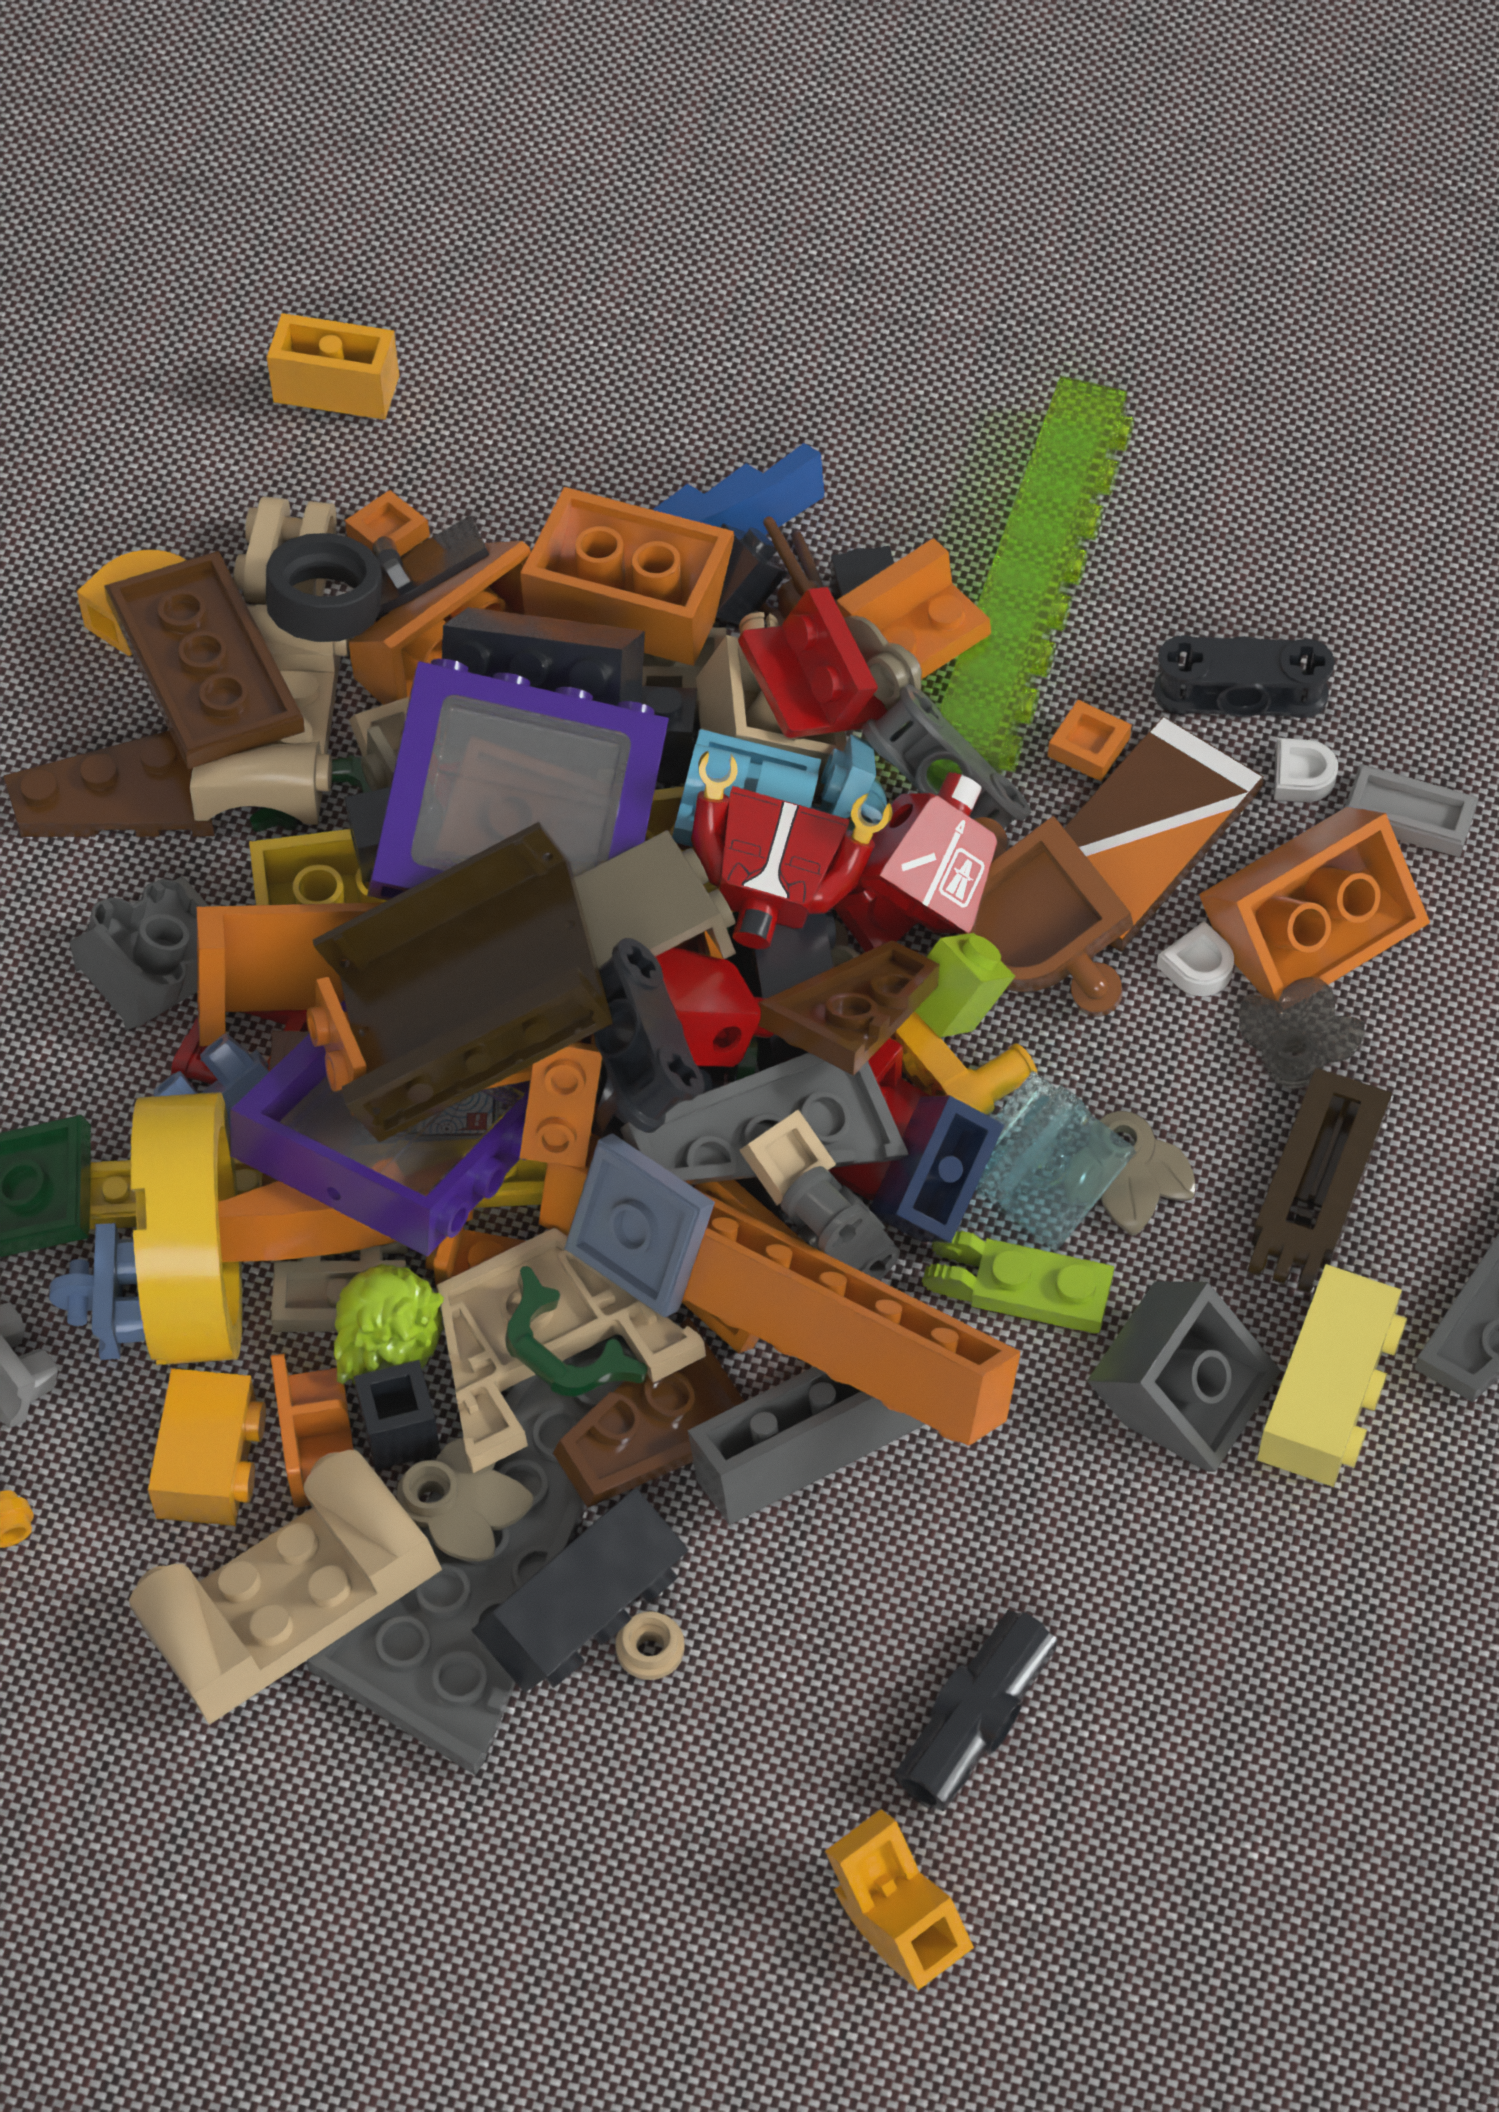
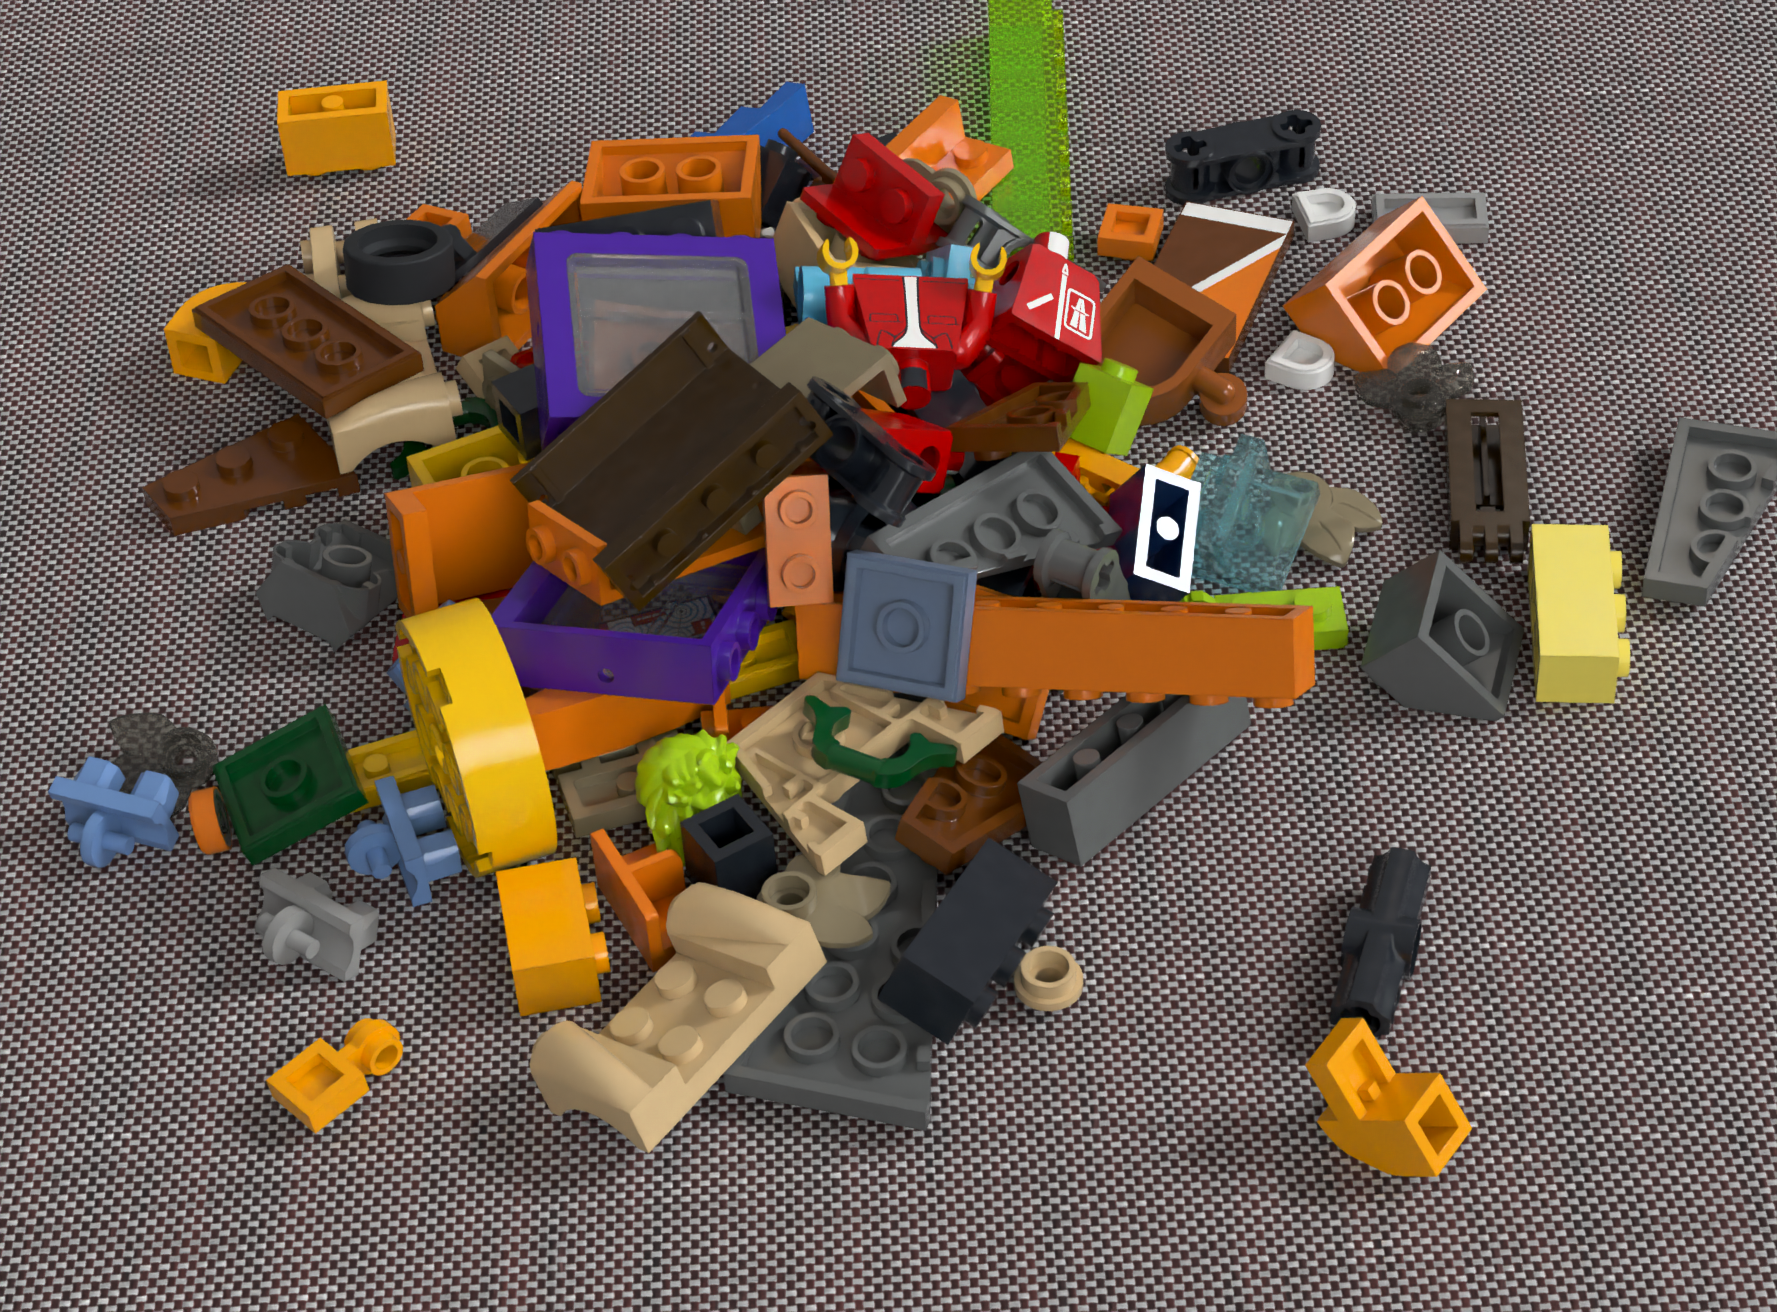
camera: 15 degrees left, 15 degrees down
(785, 1154) = (1017, 534): tan plate -> none

